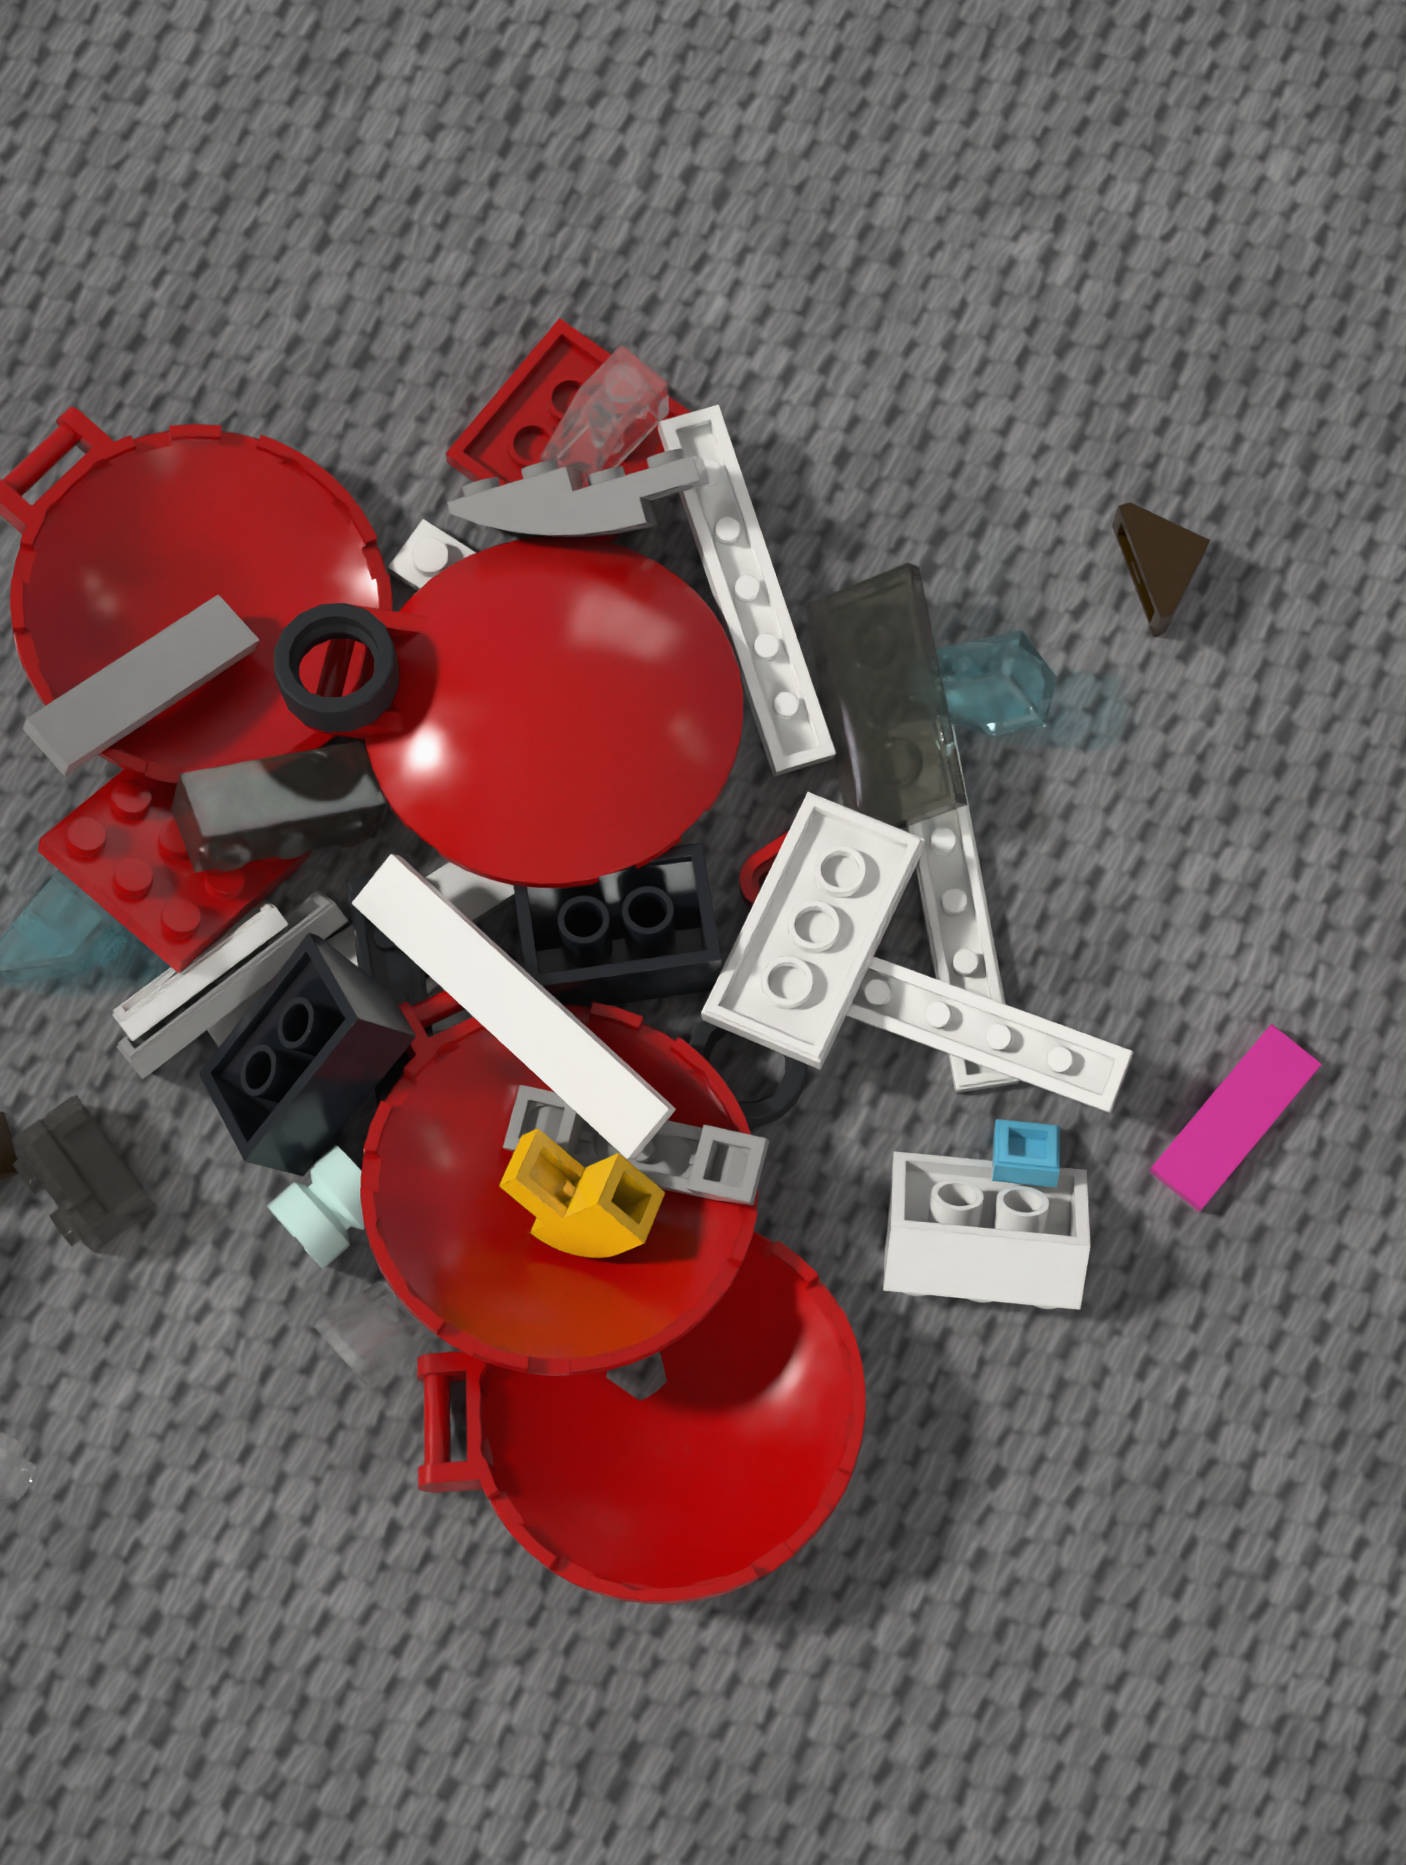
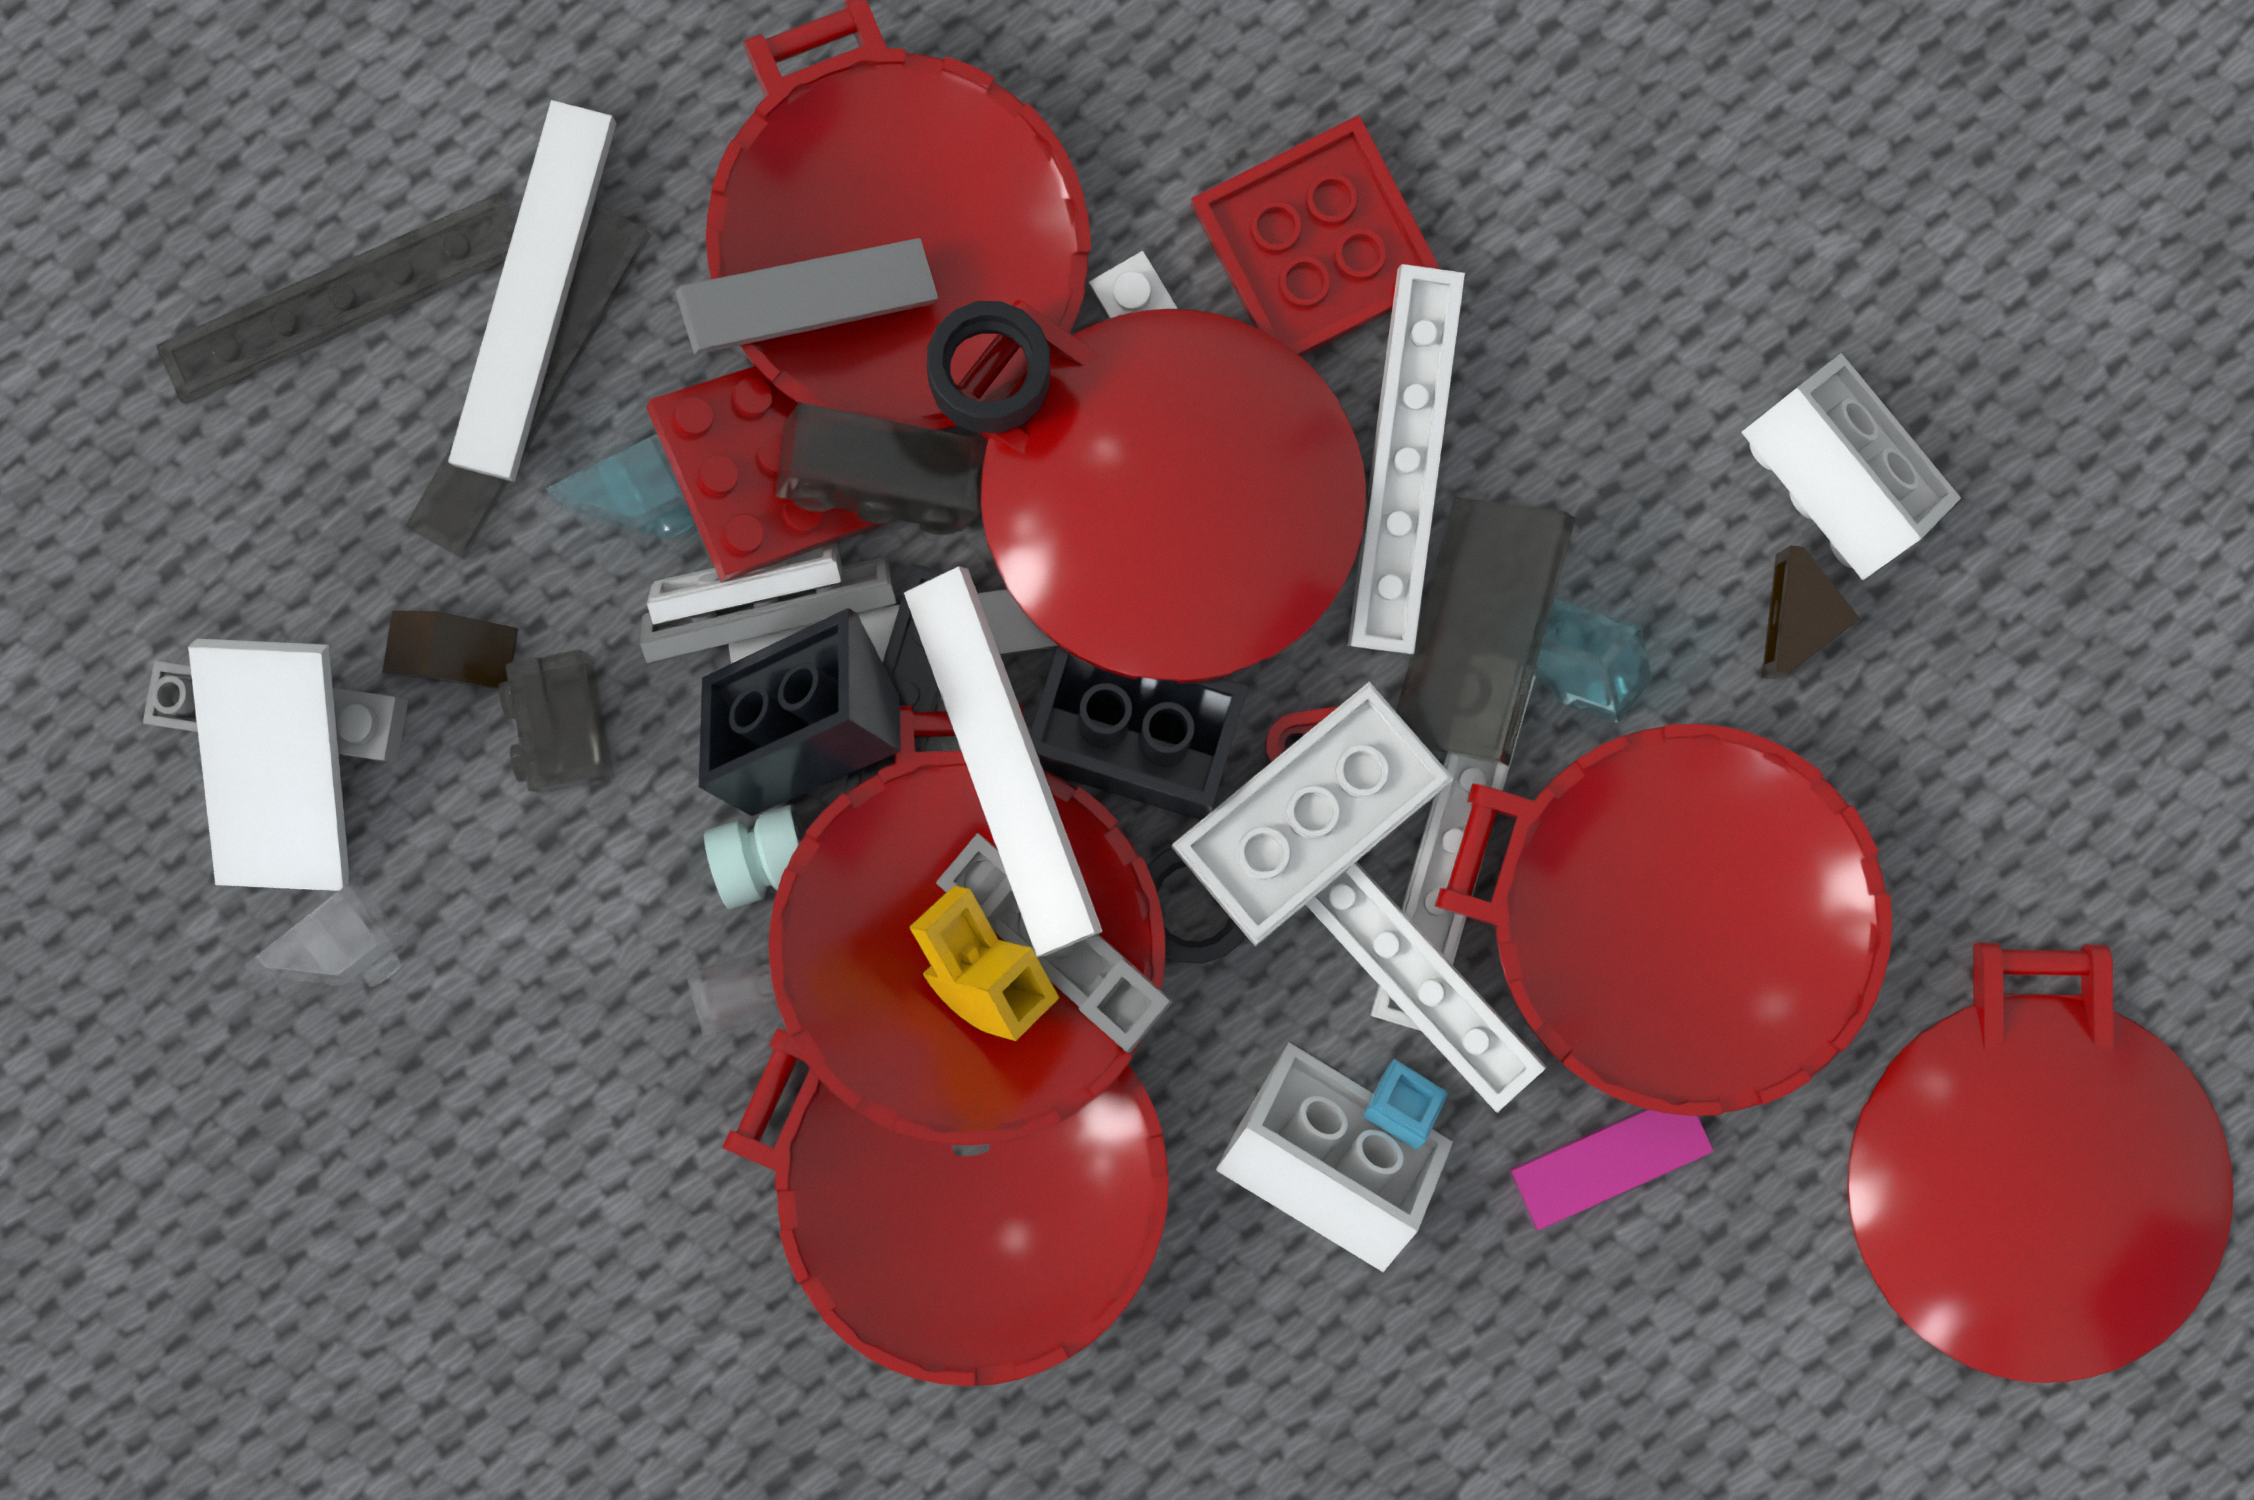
camera: 25 degrees right, 10 degrees up
(556, 504) = (1269, 304): light grey slope -> none
(609, 416) = (1352, 240): clear slope -> none
(1136, 420) = (1851, 467): none -> white slope
(1186, 866) = (1684, 917): none -> red dish

